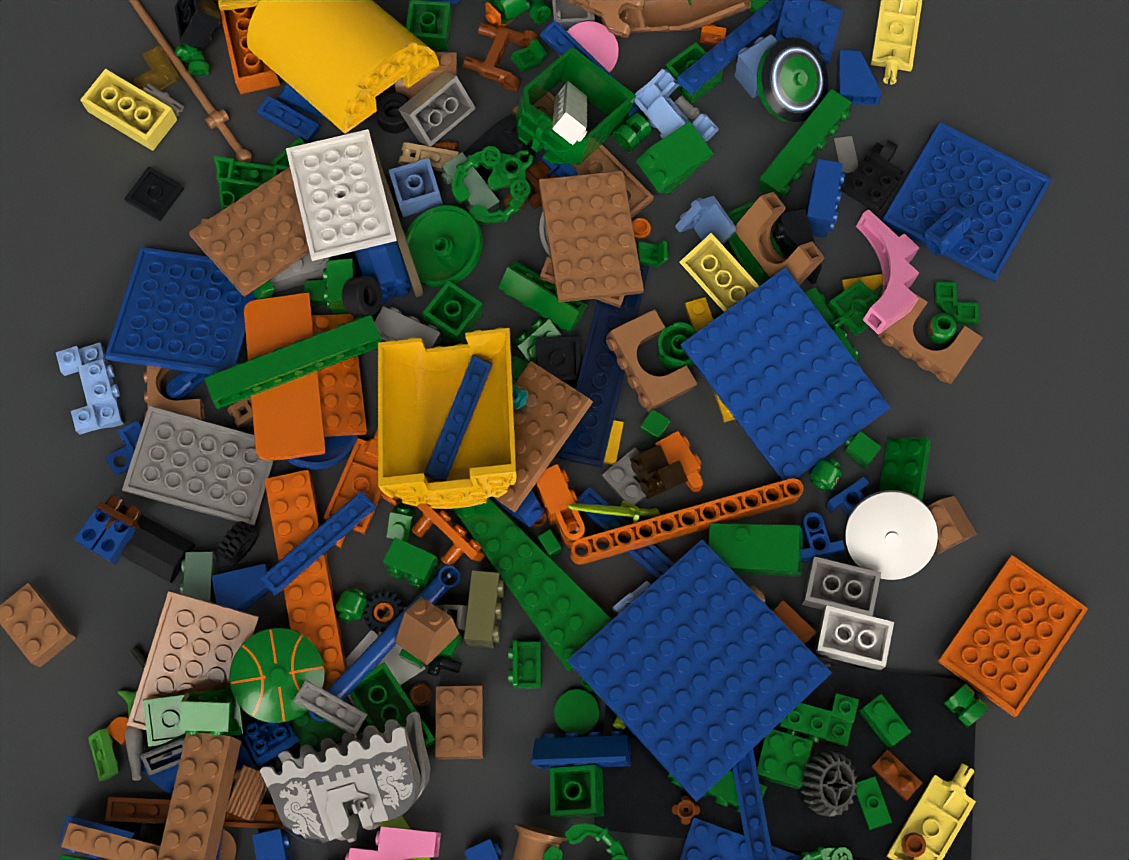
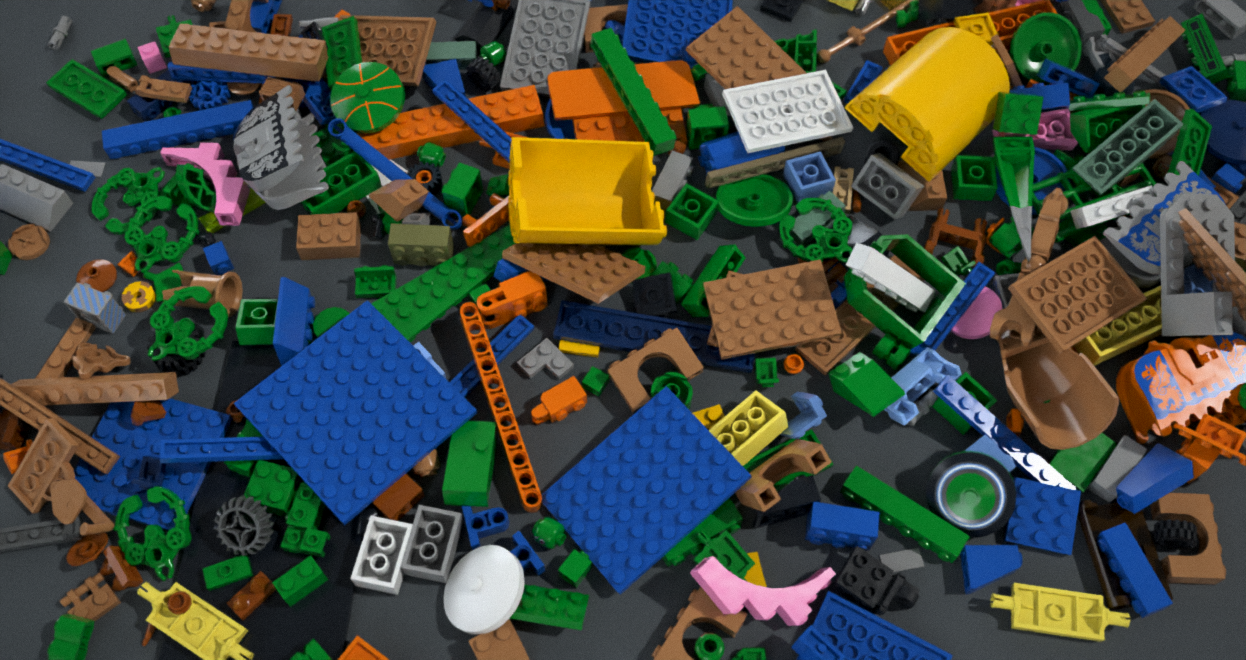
camera: 85 degrees right, 10 degrees down
(103, 754) = (331, 9): bright green plate -> none
(202, 534) = (494, 52): none -> green head
(206, 713) = (337, 49): brick -> none
(330, 707) = (336, 131): light grey tile -> none
(362, 296) = (688, 141): black tyre -> none
(457, 419) = (584, 211): blue tile -> none
(519, 397) = (606, 252): teal plate -> none
(625, 509) = (508, 356): lime sword -> none
(656, 473) = (545, 376): dark brown brick -> none

